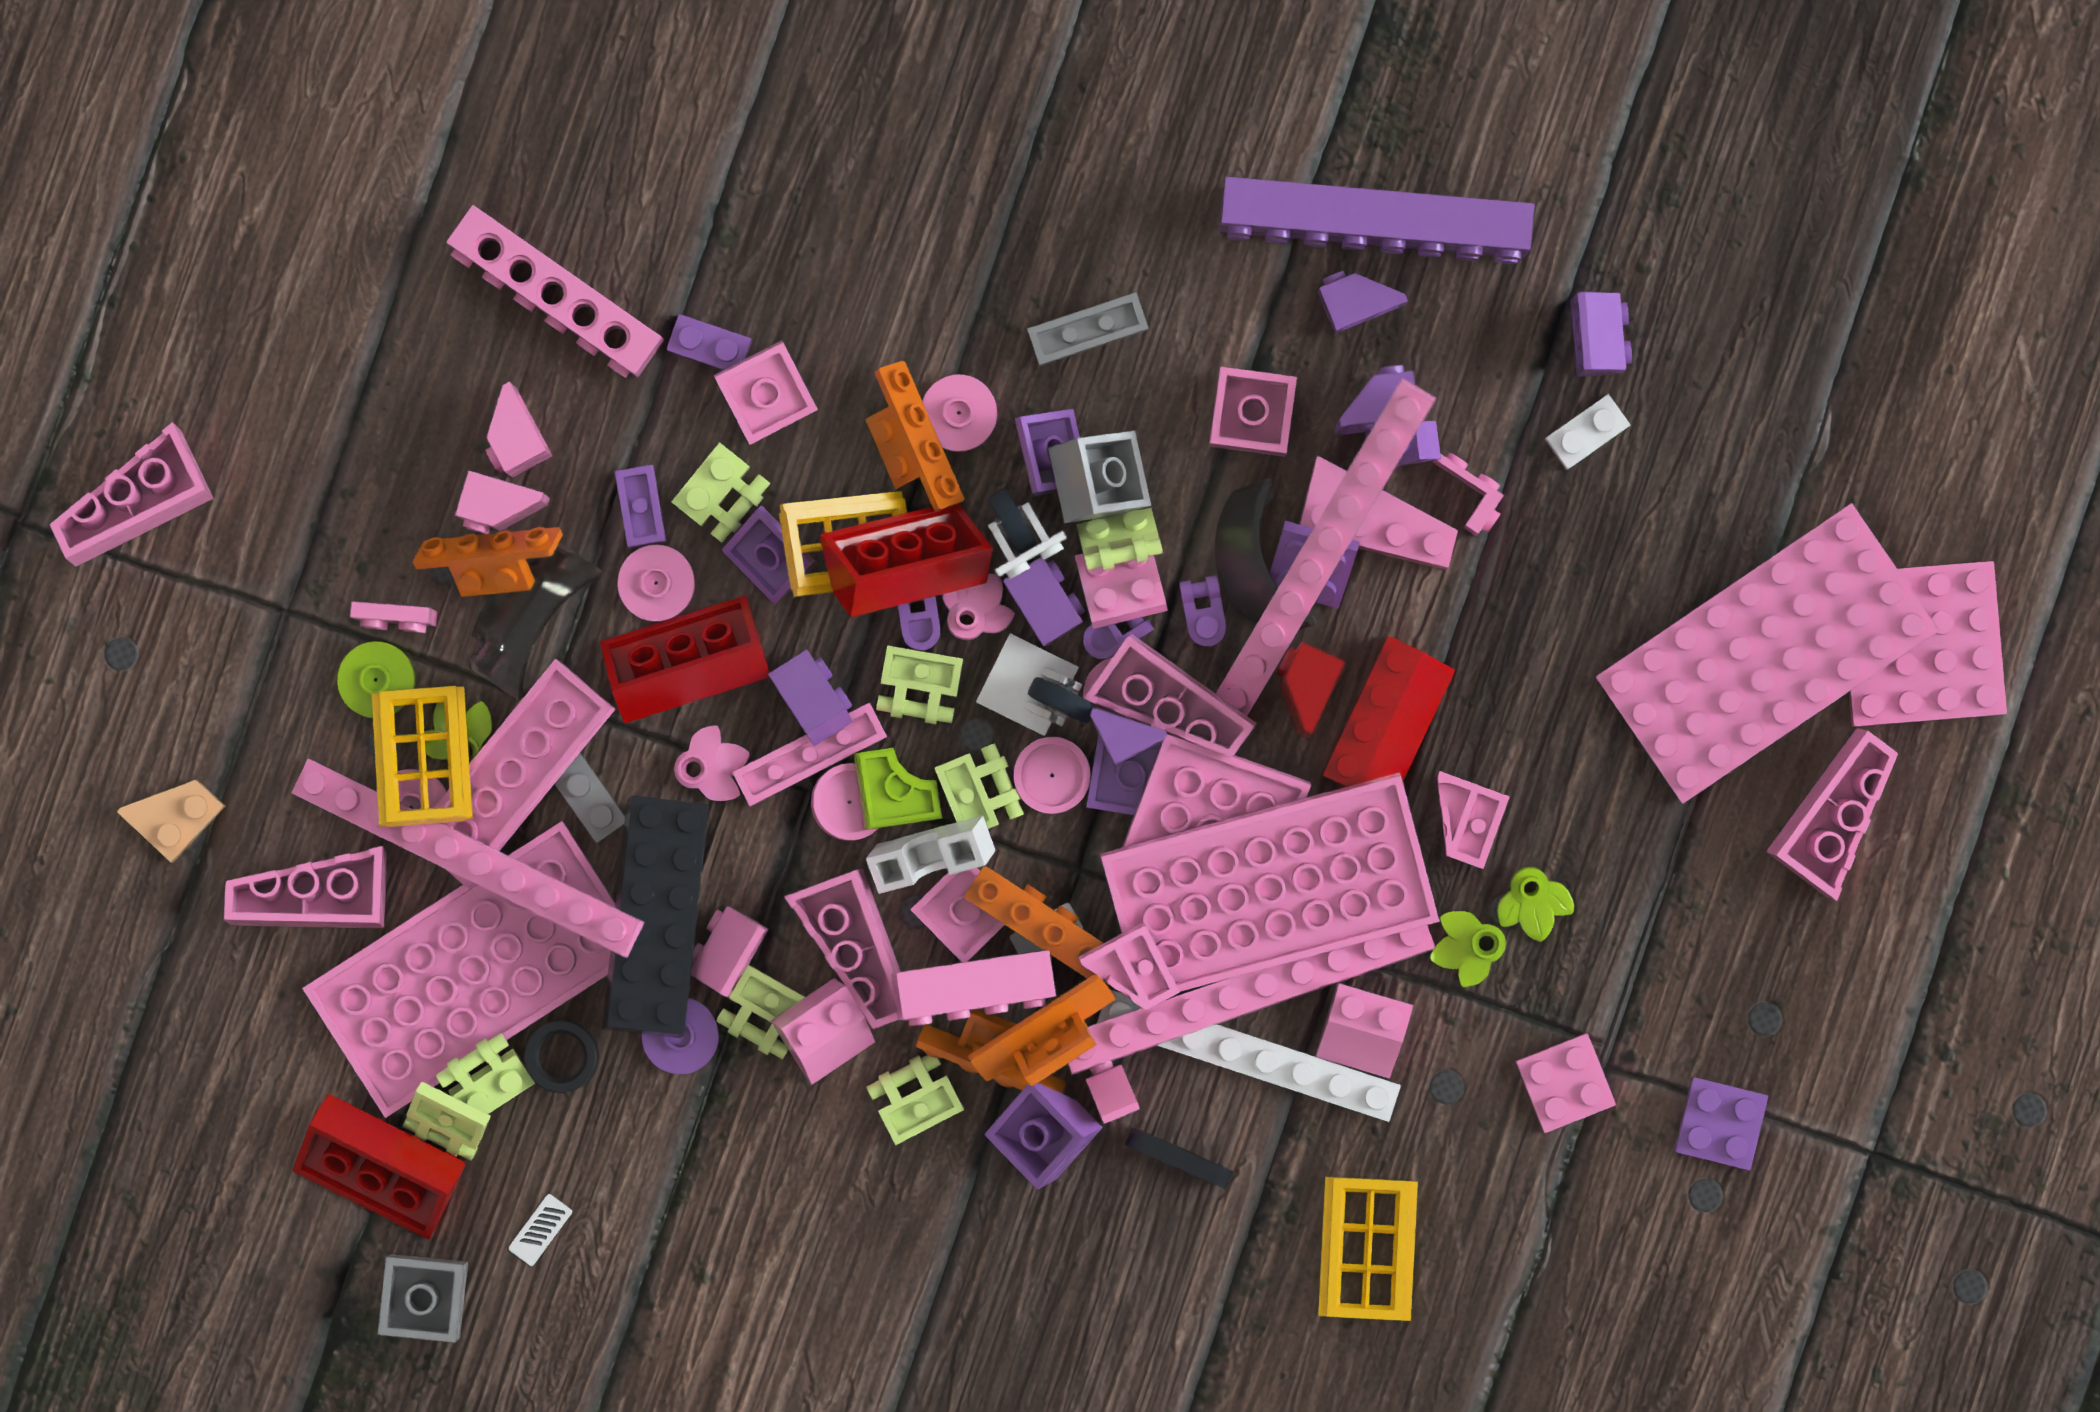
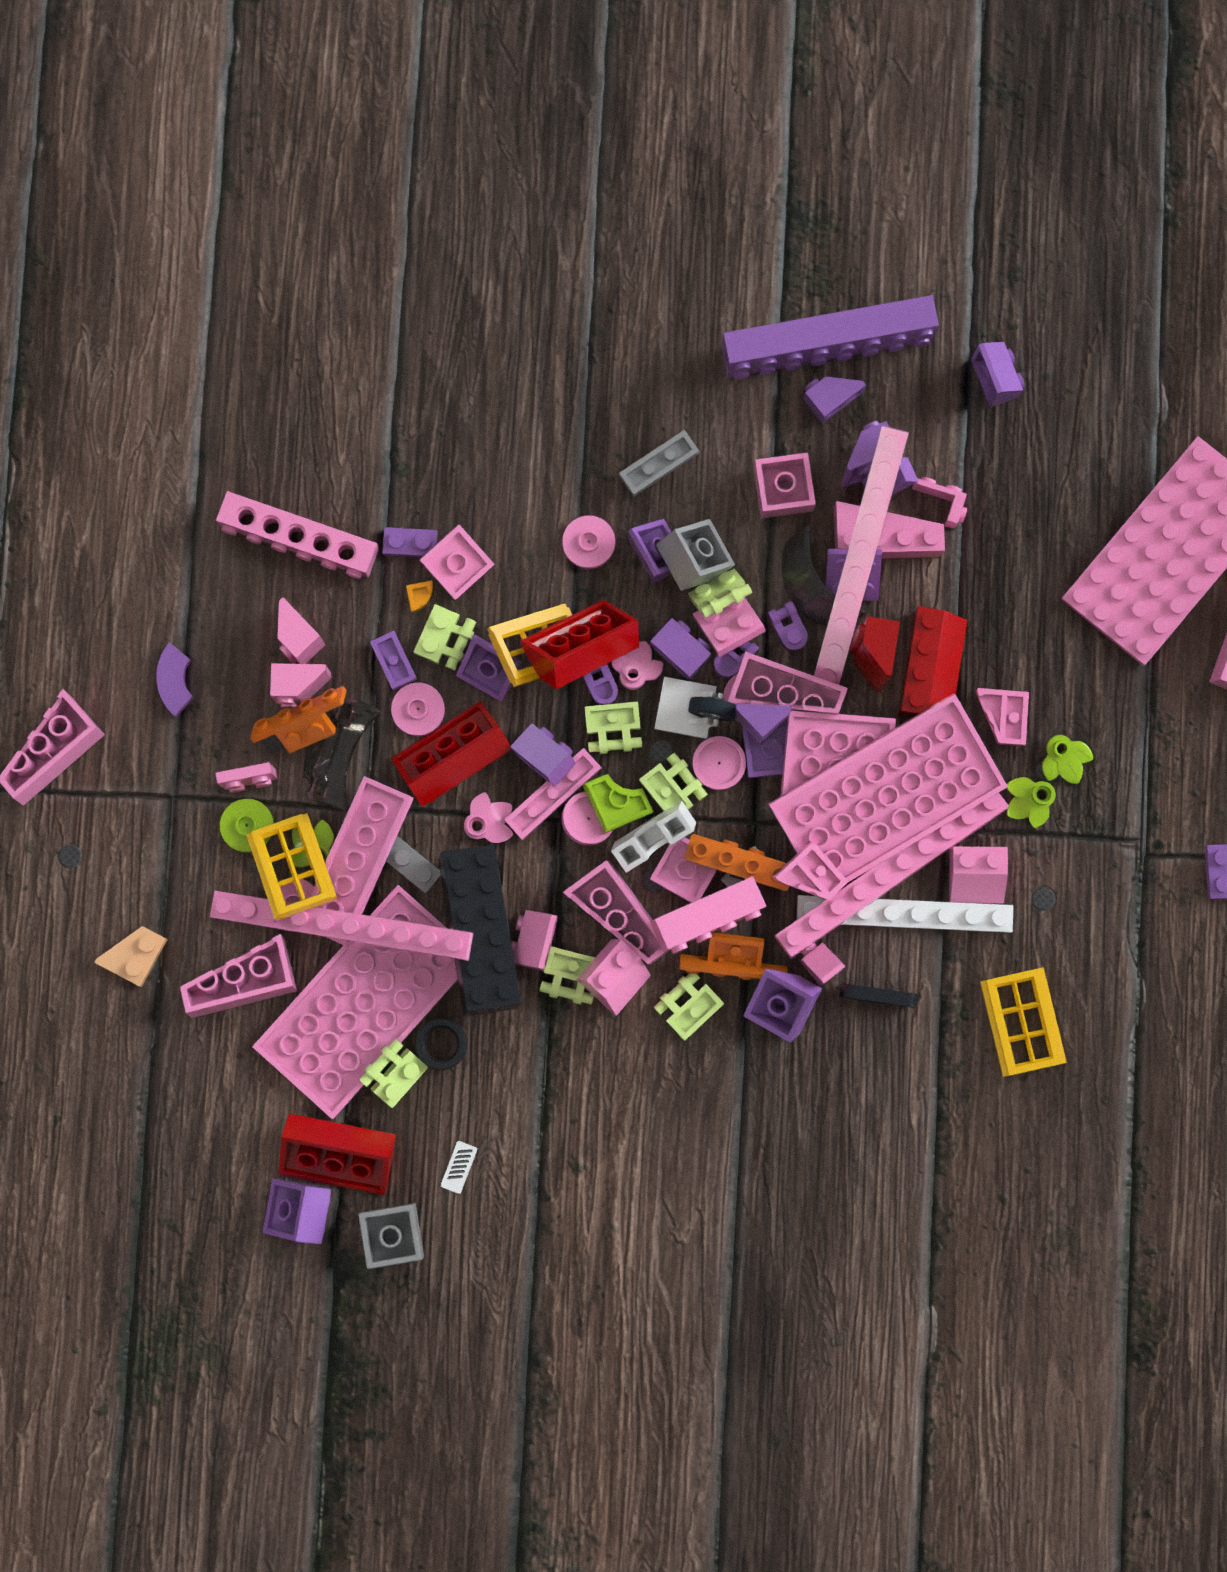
camera: 15 degrees left, 5 degrees down
(303, 1228) = (297, 1211): none -> medium lavender slope
(326, 447) = (171, 679): none -> medium lavender tile
(446, 1121) = (374, 1110): yellowish green plate -> none
(691, 1050) = (528, 1015): medium lavender piece -> none
(702, 422) = (419, 594): none -> light orange tile
(909, 439) = (561, 568): orange bracket -> none
(1014, 524) = (650, 610): plate -> none
(1046, 1037) = (768, 936): orange bracket -> none
(1565, 1083) = (1122, 873): bright pink plate -> none
(1587, 432) = (1008, 440): white plate -> none

